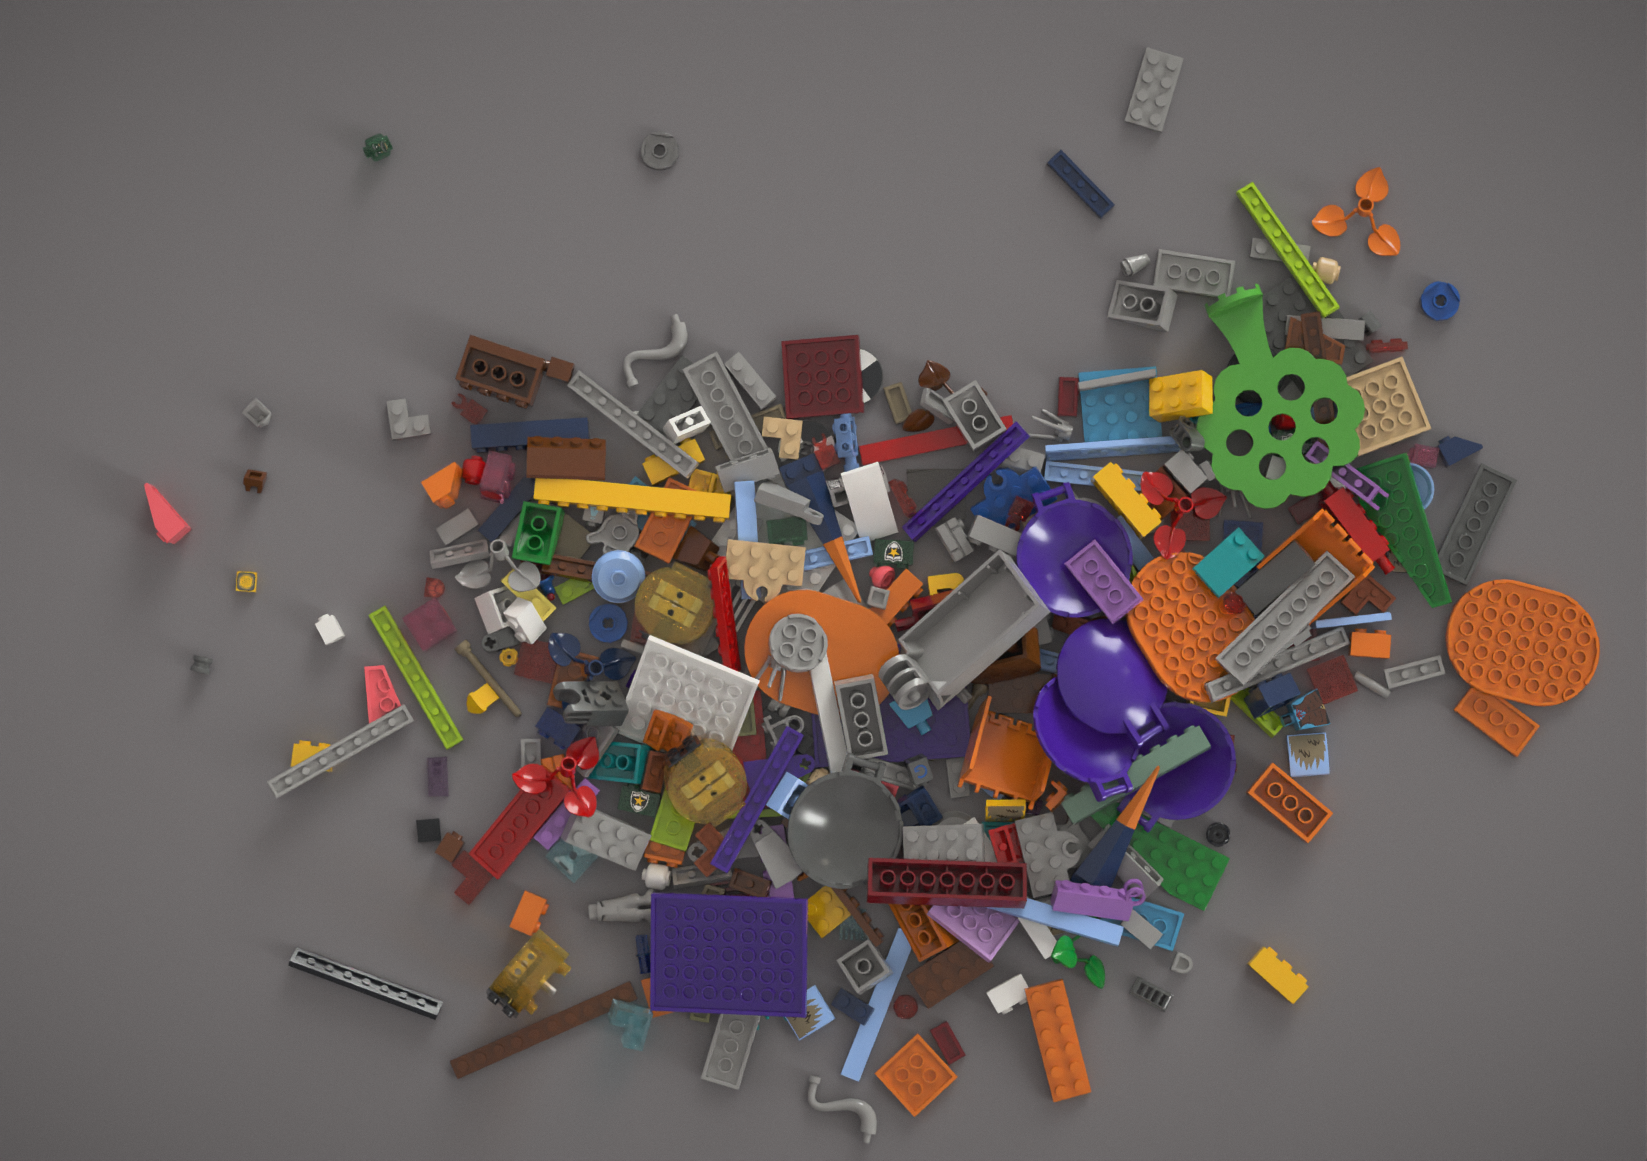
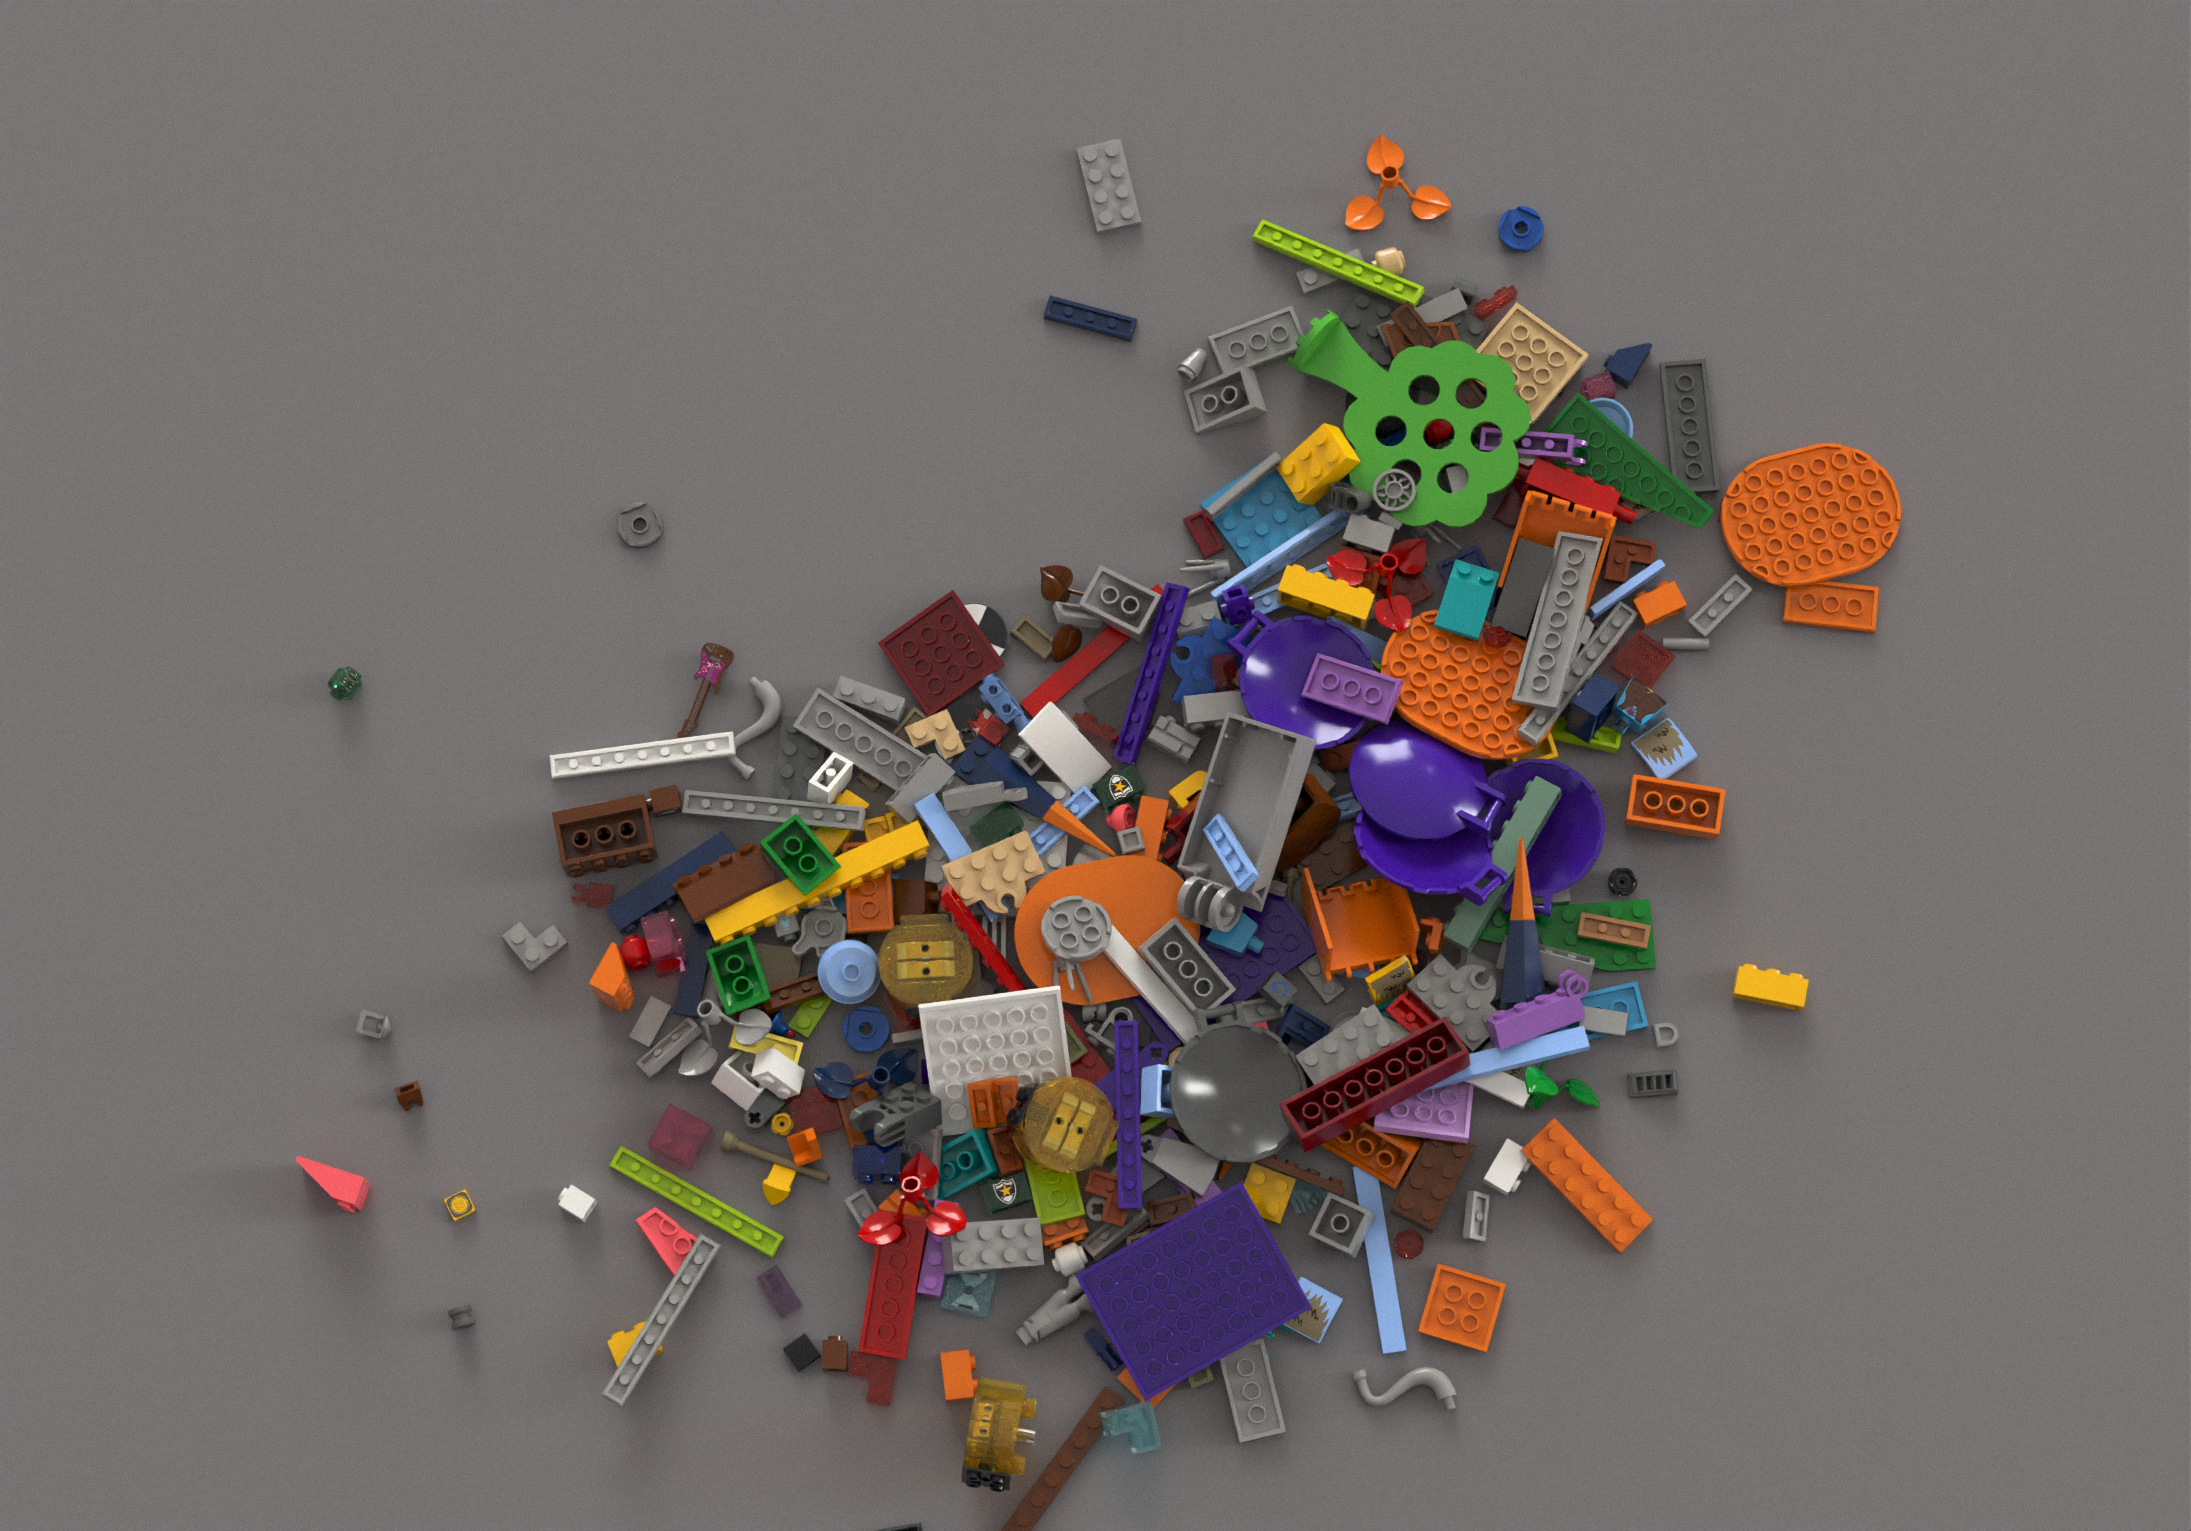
camera: 30 degrees left, 10 degrees down
(434, 588) = (661, 1098): clear red tile -> none
(514, 684) = (804, 1147): none -> orange panel
(563, 326) = (642, 755): none -> white tile
(630, 472) = (799, 855): none -> green slope
(654, 286) = (714, 662): none -> reddish brown piece
(852, 1006) = (1353, 1275): dark blue plate -> none
(941, 655) = (1230, 852): none -> light blue tile
(947, 1042) = (1474, 1256): dark red tile -> none
(965, 1015) = (1476, 1216): none -> light grey plate
(1058, 467) = (1237, 605): none -> dark purple brick
(1189, 868) = (1613, 930): none -> medium nougat plate
(1223, 450) = (1394, 490): none -> light grey wheel

